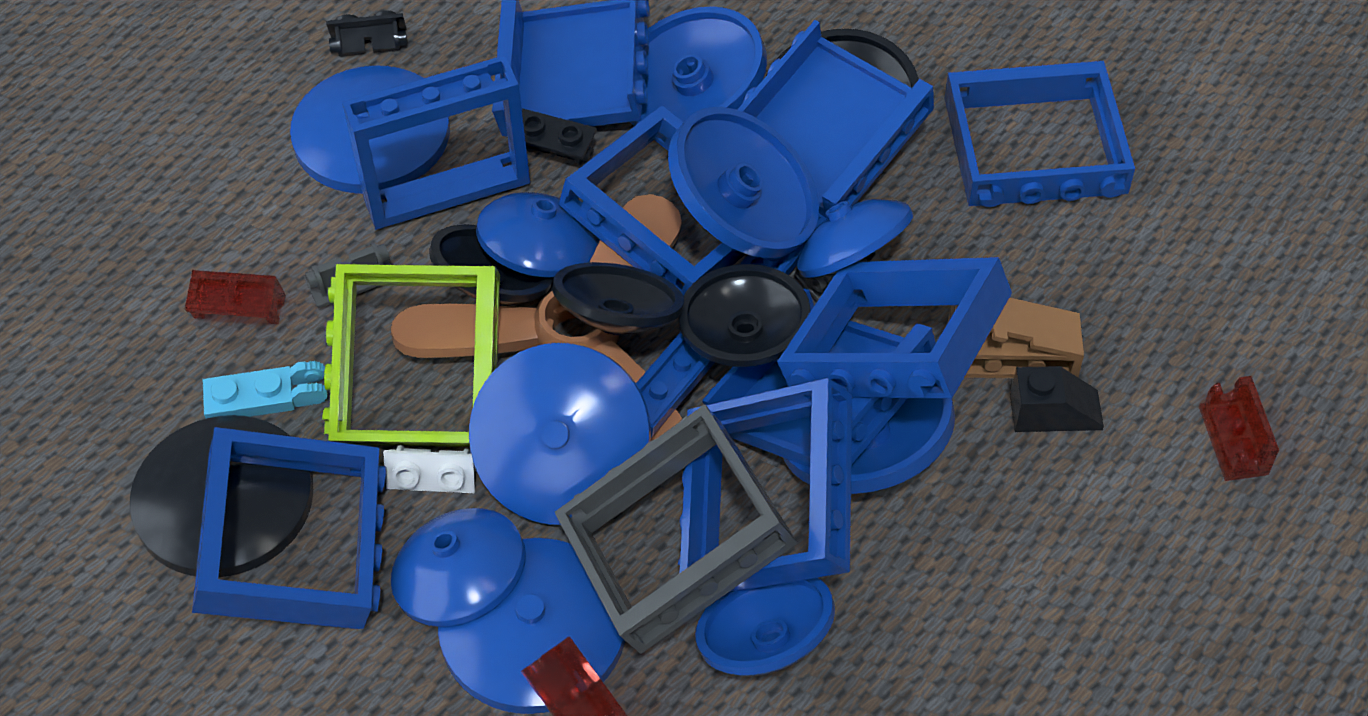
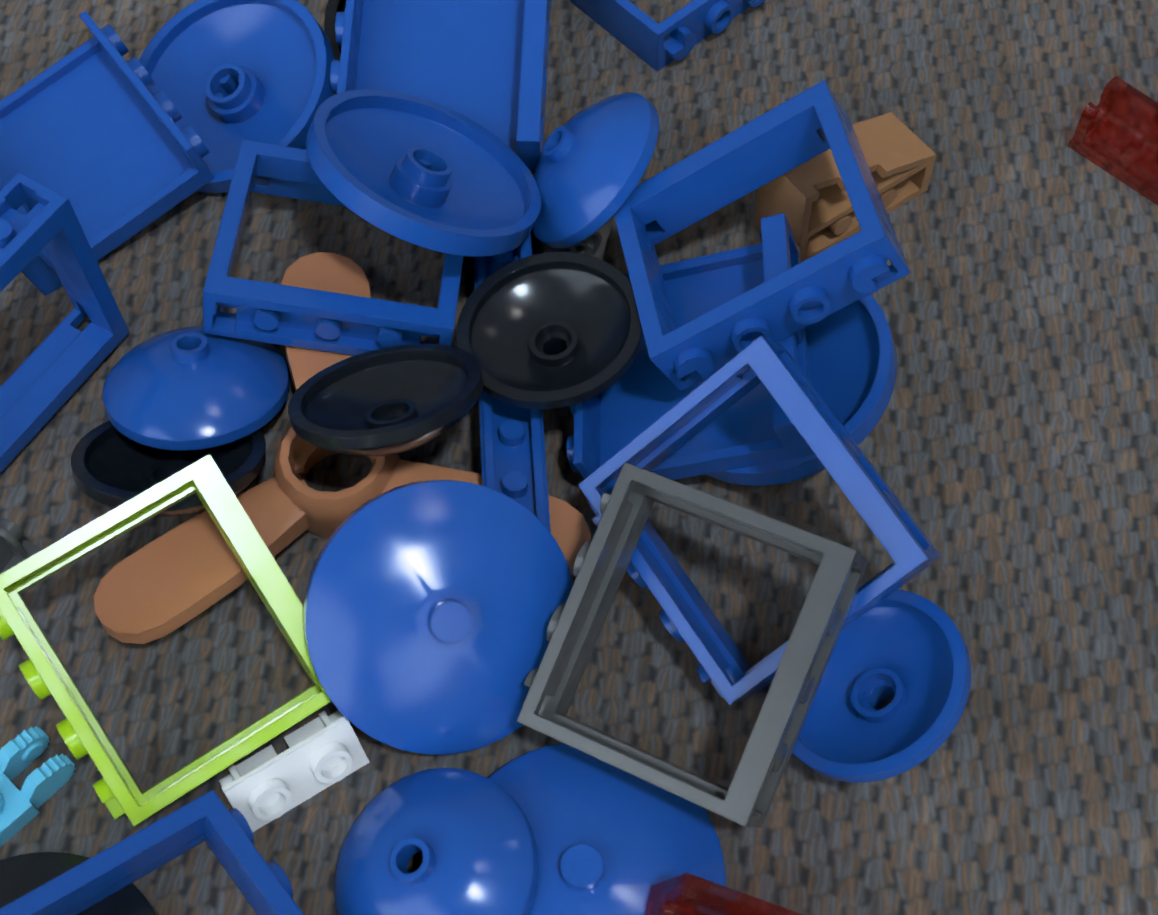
camera: 35 degrees left, 5 degrees up
(558, 135) = (136, 251): black hinge -> none
(1053, 401) = (937, 226): black slope -> none

